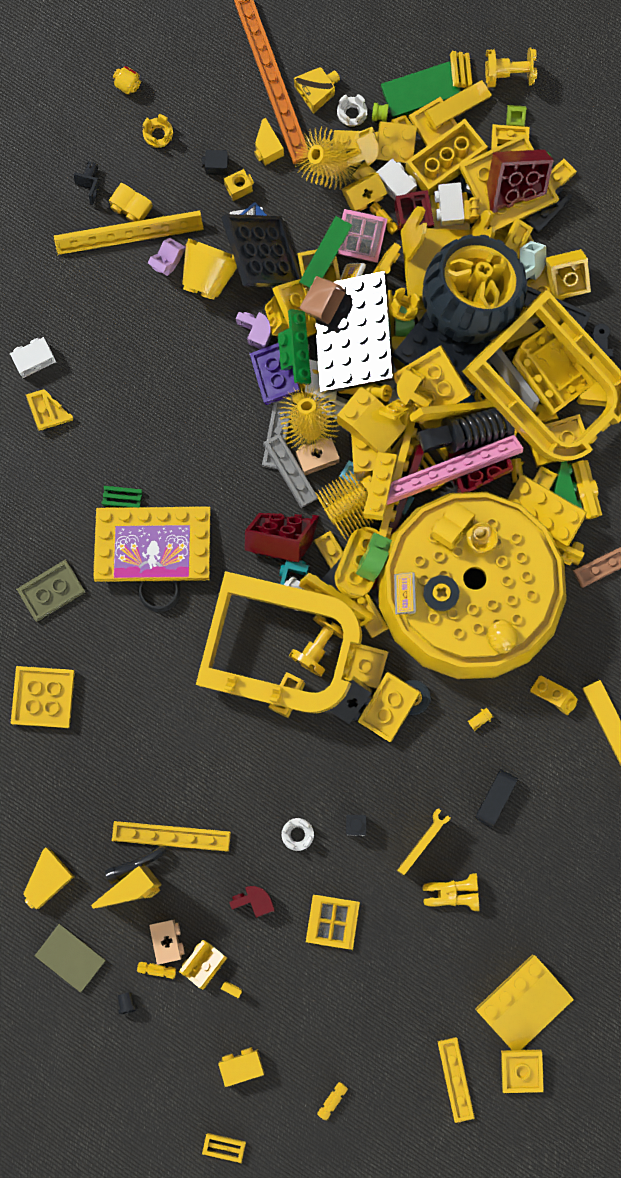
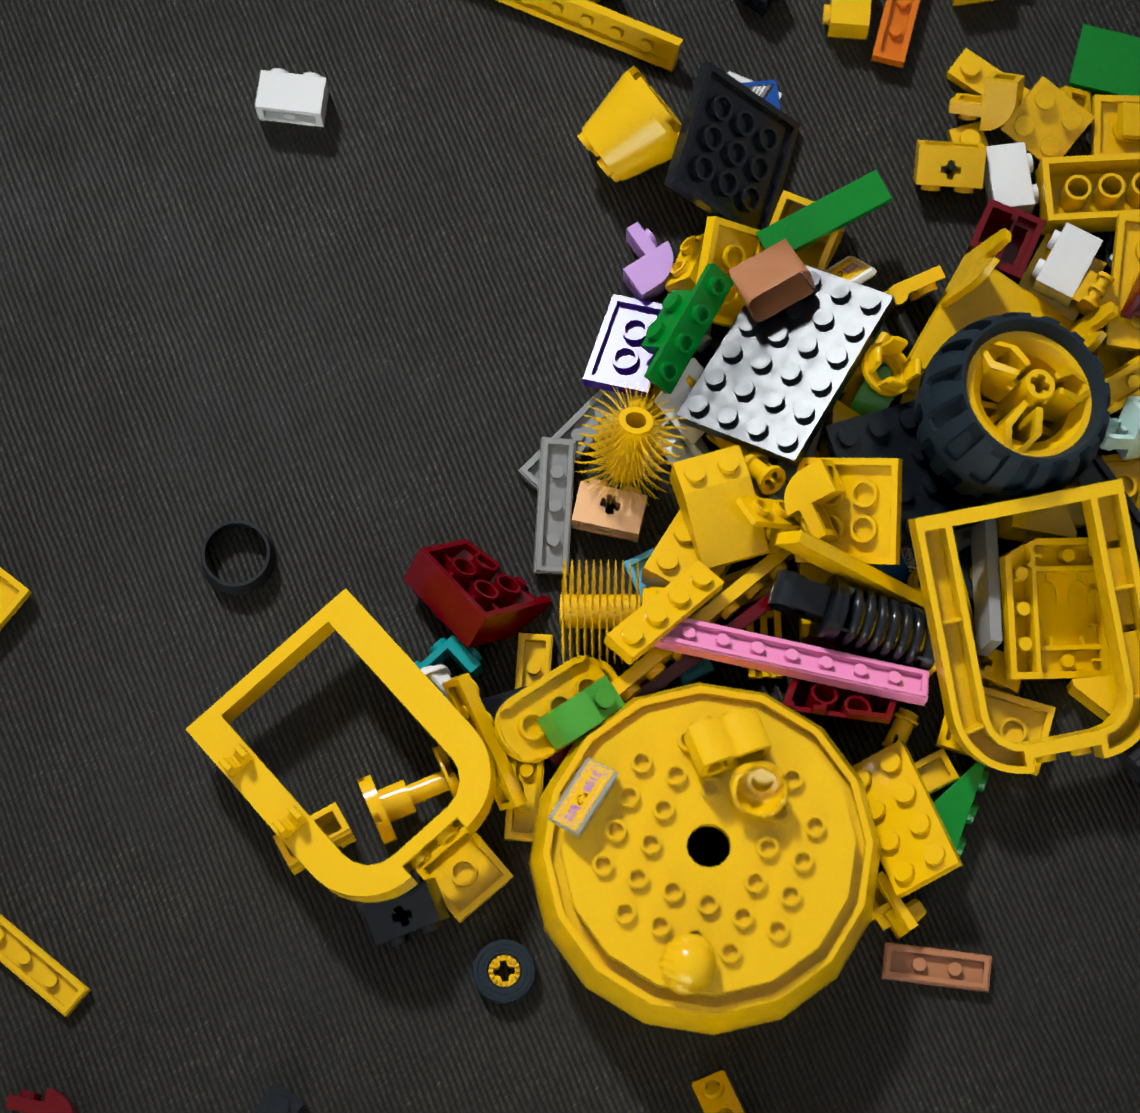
camera: 30 degrees right, 5 degrees down
(46, 410) = (258, 187): yellow wing -> none
(50, 590) = (81, 452): olive tile -> none
(124, 497) = (258, 366): green tile -> none
(152, 544) = (274, 481): plate -> none
(167, 257) = (588, 78): lavender brick -> none
(237, 192) = (768, 26): yellow brick -> none
(286, 834) = (165, 1062): white piece -> none
(328, 158) = (924, 79): yellow piece -> none
(352, 102) = (1012, 20): white piece -> none
(364, 237) = (902, 230): clear piece -> none
(380, 112) = (1053, 64): lime wheel -> none
(389, 707) = (455, 960): yellow plate -> none
(391, 226) = (953, 223): yellow axle -> none
(442, 603) = (628, 849): black bush -> none
(480, 719) = (584, 1075): yellow pin -> none
(586, 489) = (989, 831): yellow piece -> none

